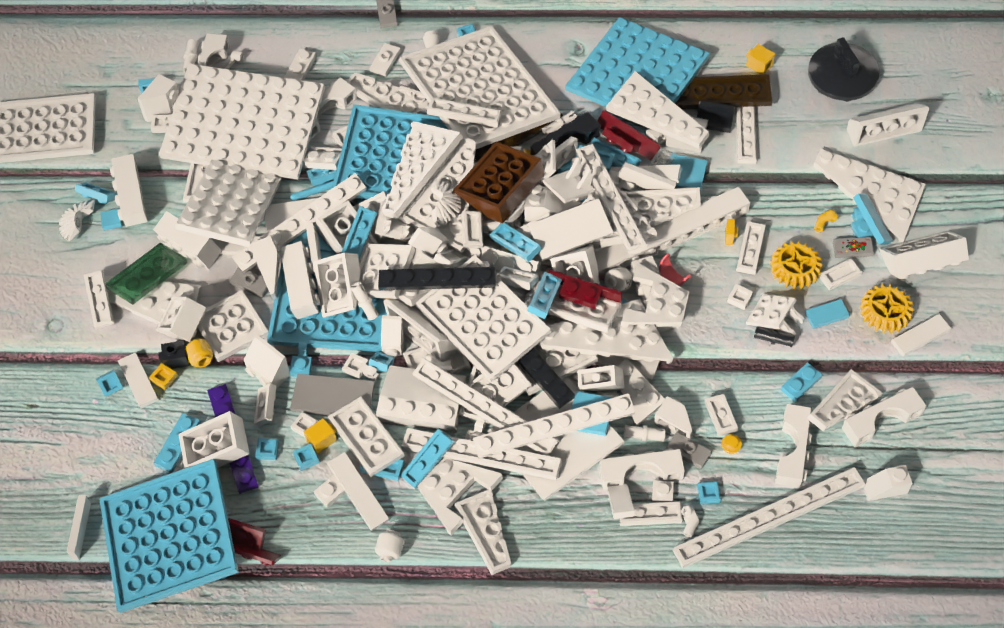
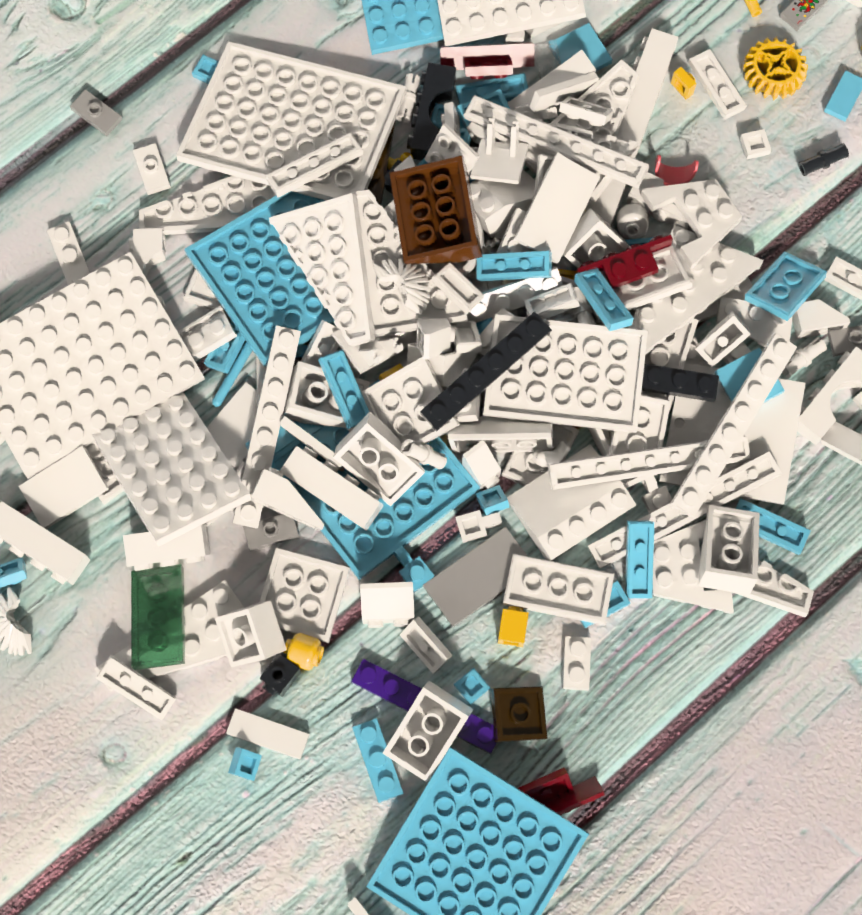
camera: 45 degrees left, 15 degrees up
(110, 219) = (47, 591): medium azure tile -> none
(163, 376) = (291, 707): yellow plate -> none
(172, 175) = (63, 487): none -> white tile
(274, 483) = (518, 714): none -> dark brown tile
(302, 423) = (482, 629): white tile -> none
(305, 457) = (520, 661): medium azure plate -> none
(358, 491) = (607, 649): white tile -> none
(389, 545) = (690, 675): white head -> none
(431, 38) = (182, 109): white cone -> none
(480, 493) = (730, 550): none -> white slope
(524, 507) = (778, 529): none -> medium azure plate
(647, 197) = (581, 109): none -> white plate
(672, 383) = (785, 286): none -> medium azure tile
(771, 313) = (801, 135): white plate -> none
(840, 274) = (819, 44): white tile -> none

